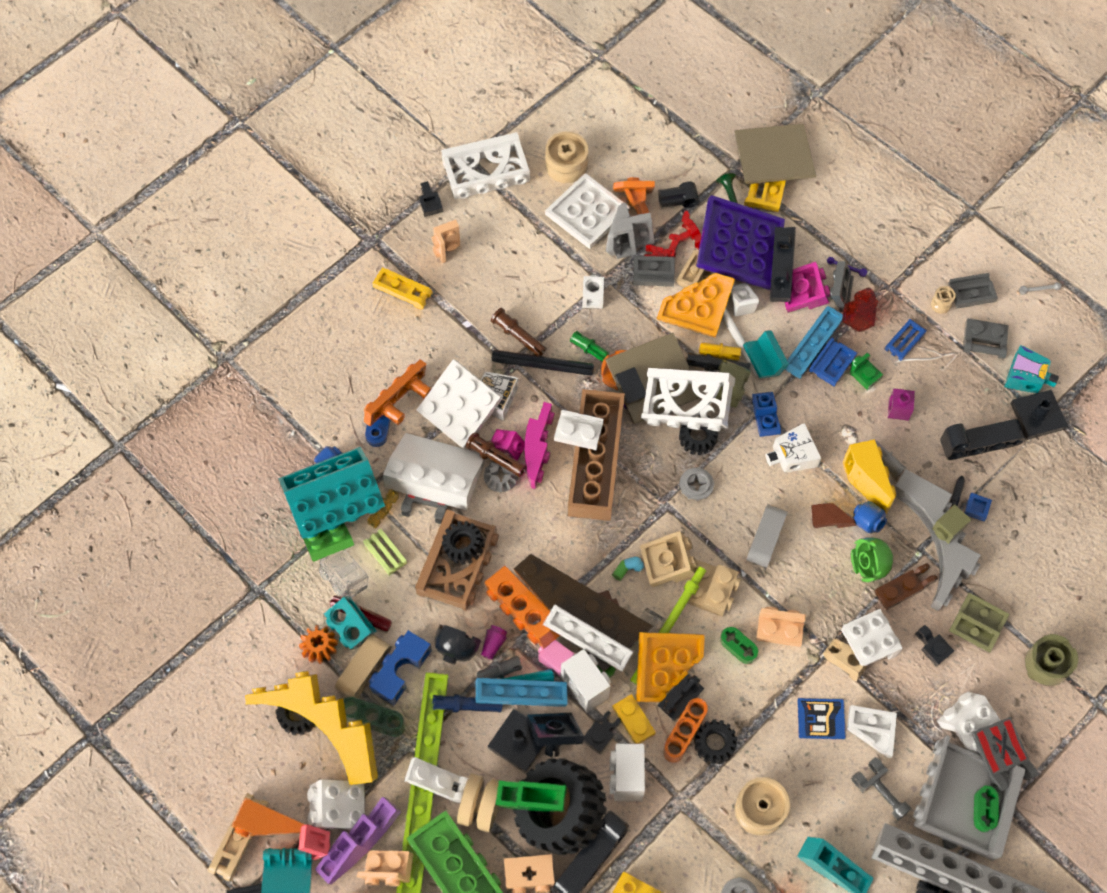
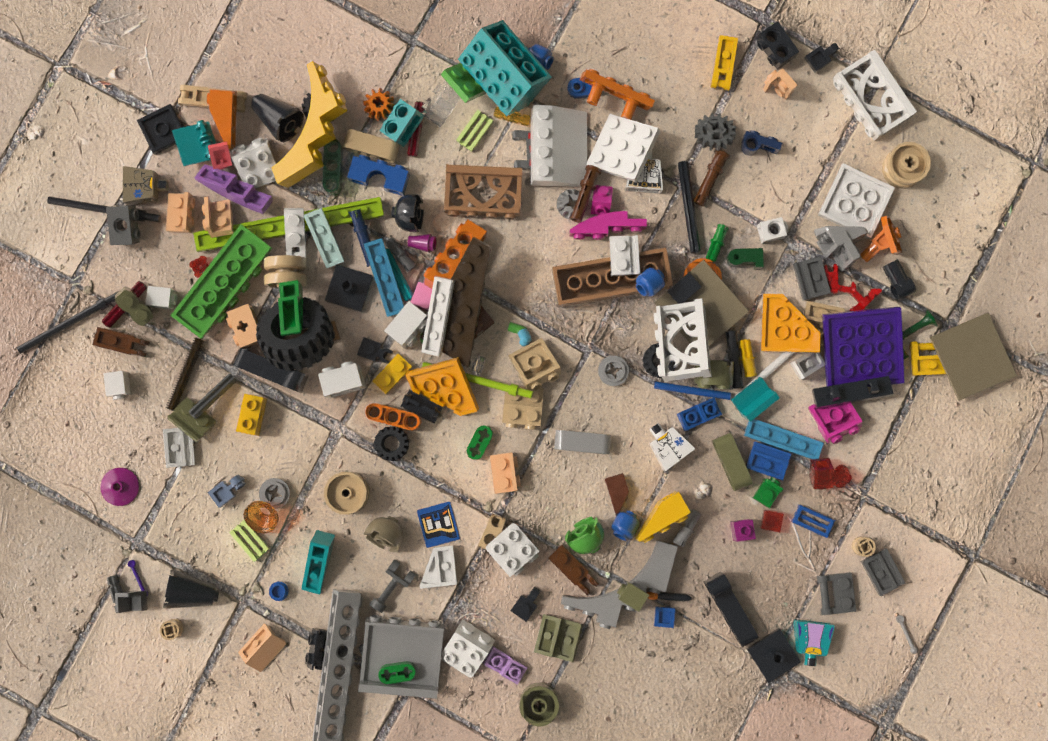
camera: 75 degrees right, 20 degrees up
(289, 762) = (277, 116): none -> black cone
(402, 231) = (781, 43): none -> black brick
(453, 747) = (324, 237): none -> light aqua plate
(471, 550) = (494, 201): black tyre -> none
(472, 314) = (715, 132): none -> dark grey gear
(498, 278) = (768, 143): none -> dark blue plate
(554, 730) = (360, 312): black tile -> none
(611, 329) = (746, 256): none -> dark green leg
(616, 410) = (650, 282): none -> blue head
(738, 414) = (692, 390): none -> blue bar
(819, 775) = (385, 532): none -> dark tan cylinder
(825, 395) = (732, 462): none -> olive beam
(842, 285) = (847, 451): dark grey plate -> none
(862, 272) = (872, 467): dark purple hinge -> none
(897, 376) = (771, 521): none -> clear red plate
(1000, 686) = (505, 665): none -> lavender slope
(1001, 751) = (449, 675): dark grey flag -> none

